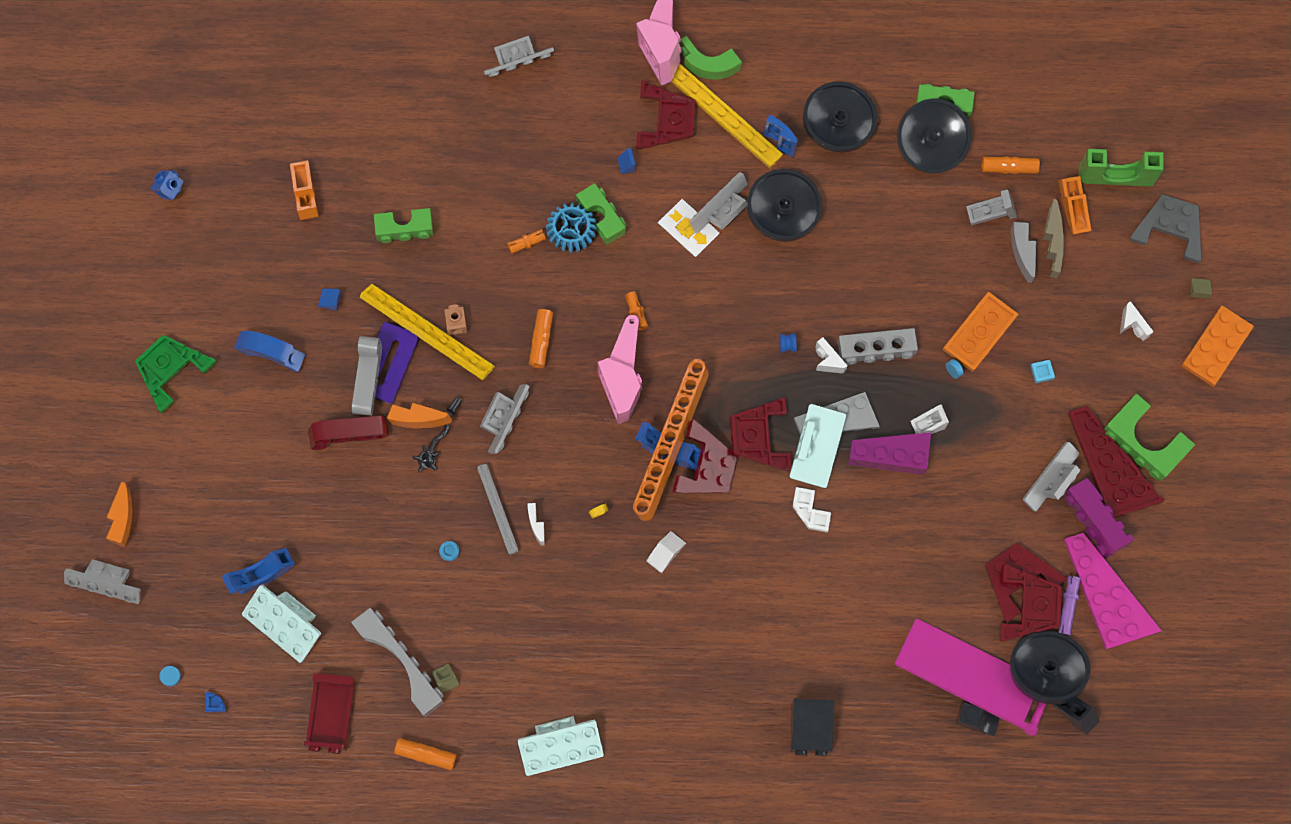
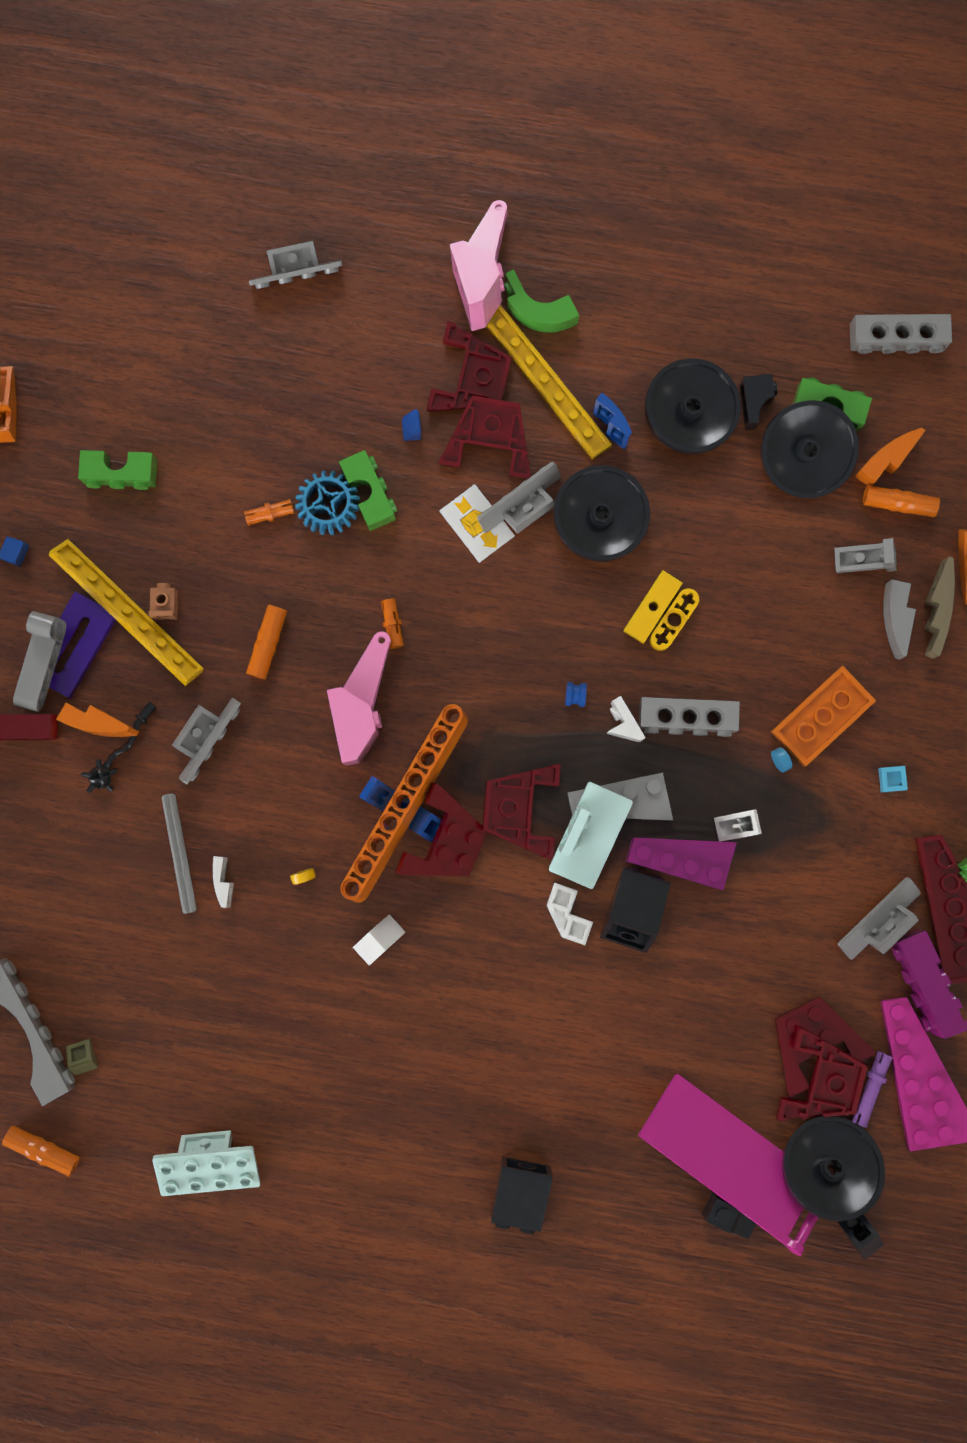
camera: 15 degrees right, 10 degrees up
(449, 551) = (111, 897): dark azure tile -> none
(688, 151) = (491, 425): none -> dark red wing
(839, 260) = (660, 595): none -> yellow tile
(854, 263) = (678, 601): none -> yellow beam
(862, 498) = (635, 910): none -> black slope
(886, 101) = (755, 393): none -> black arch
(995, 133) = (889, 457): none -> orange slope
(1012, 33) = (934, 325): none -> light grey brick

